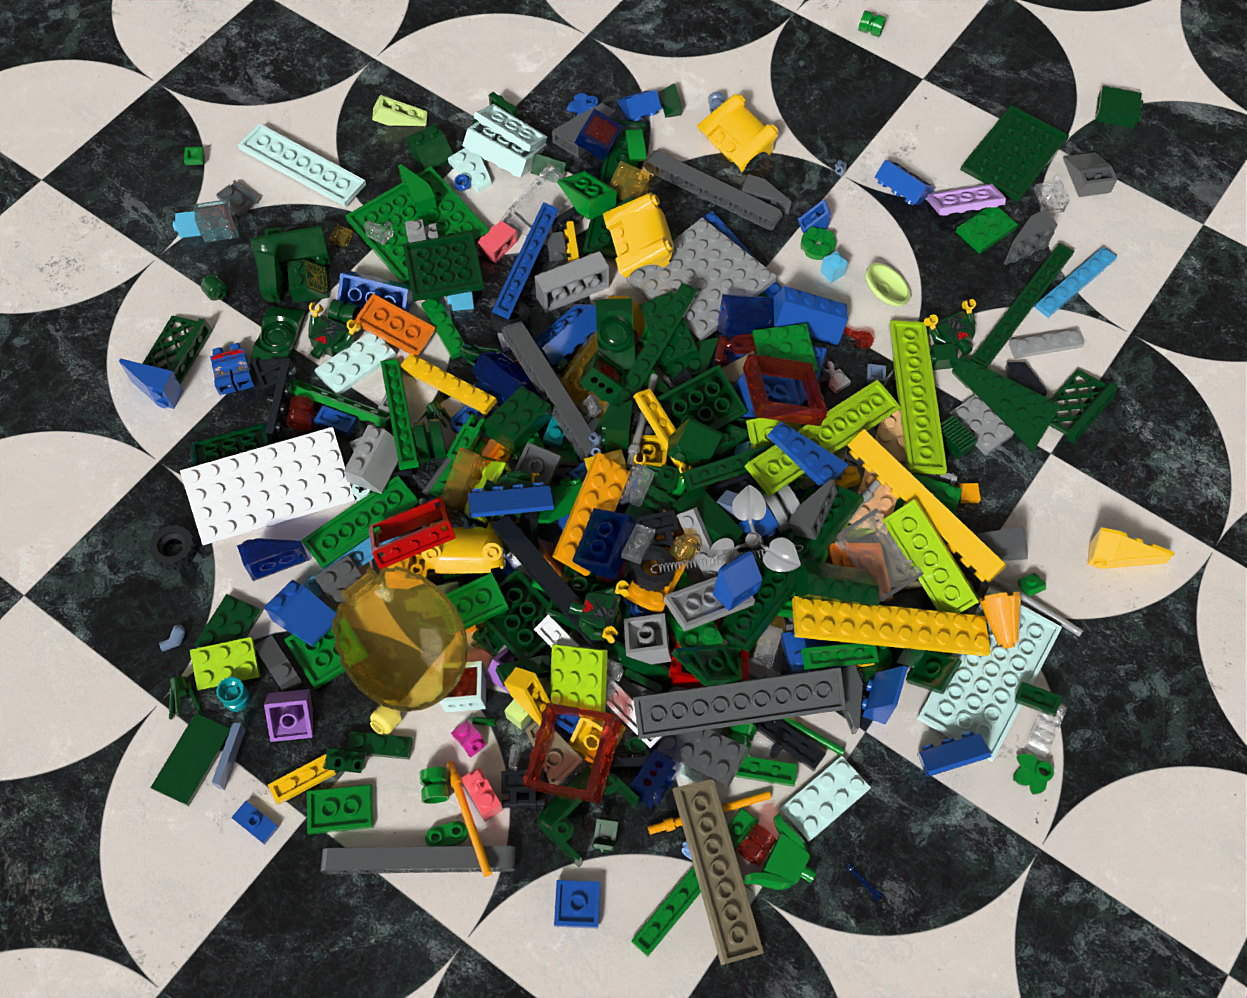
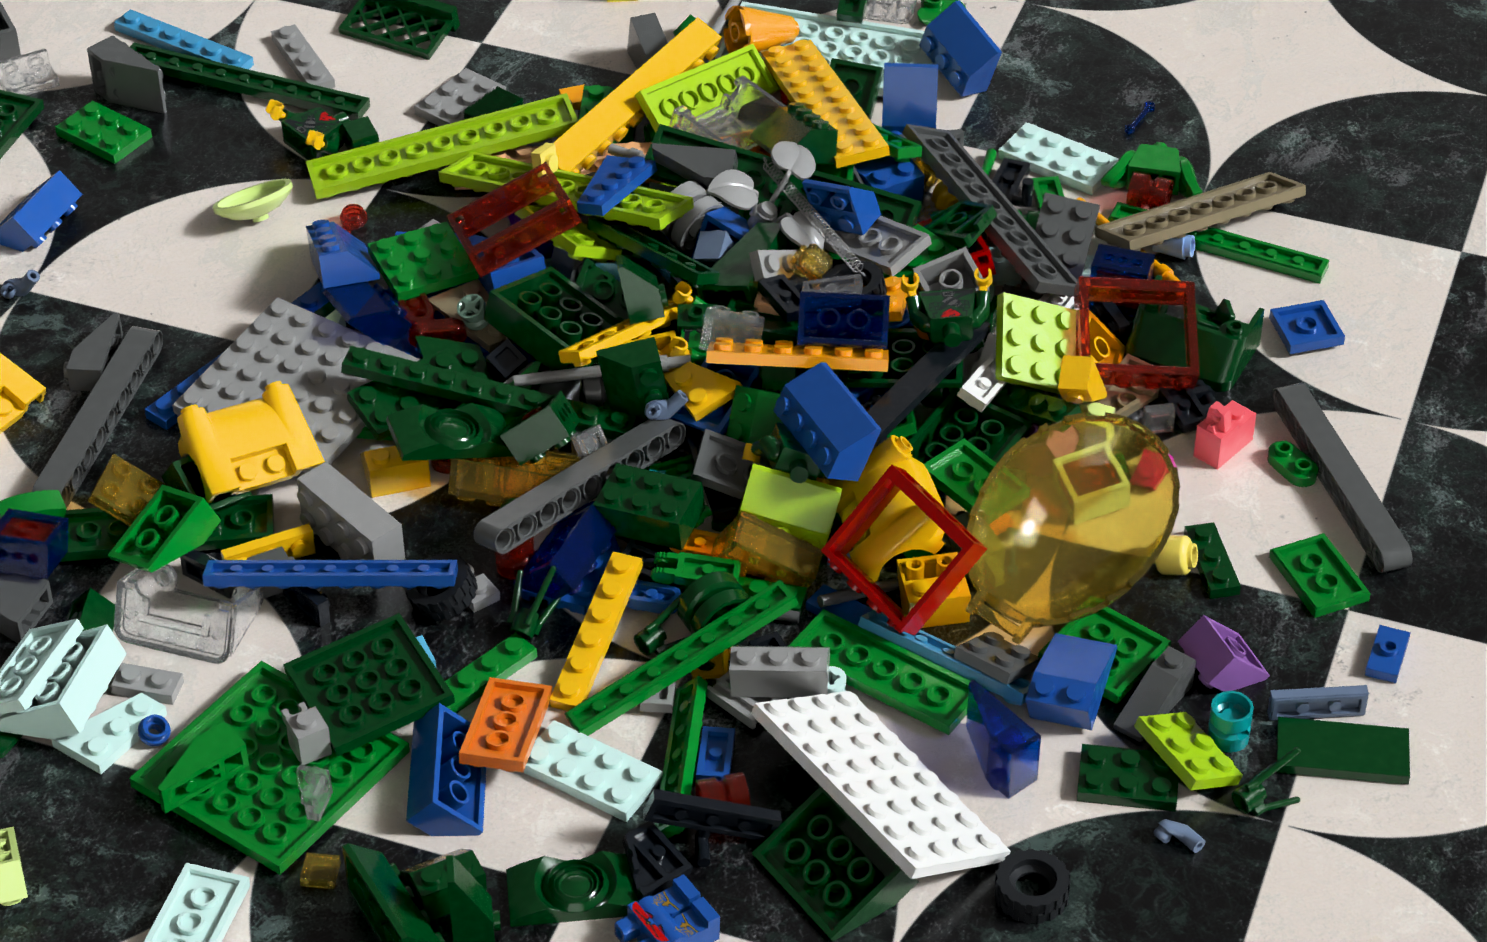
camera: 105 degrees left, 20 degrees down
(300, 780) = (1304, 619): yellow plate -> none
(328, 335) = (553, 806): dark green torso -> none
(343, 312) = (499, 801): dark green wheel -> none
(344, 760) = (1257, 569): dark green hips -> none
(429, 147) = (80, 796): dark green slope -> none
(434, 785) = (1238, 480): green wheel -> none
(456, 783) = (1221, 467): light orange bar -> none
(497, 241) = (278, 642): coral brick -> none
(499, 186) = (153, 682): none -> light grey plate
(567, 332) = (440, 521): blue slope -> none
(726, 364) = (472, 304): none -> sand green wheel
(816, 217) = (133, 290): blue slope -> none
(820, 235) = (189, 281): green plate -> none
(833, 267) = (228, 259): medium azure brick -> none
(851, 426) = (547, 154): none -> light yellow plate
(876, 372) = (412, 197): sand blue plate -> none
(966, 199) = (60, 144): lavender plate -> none
(1017, 406) = (419, 68): dark green wing -> none
(1023, 375) = (373, 73): black wing -> none

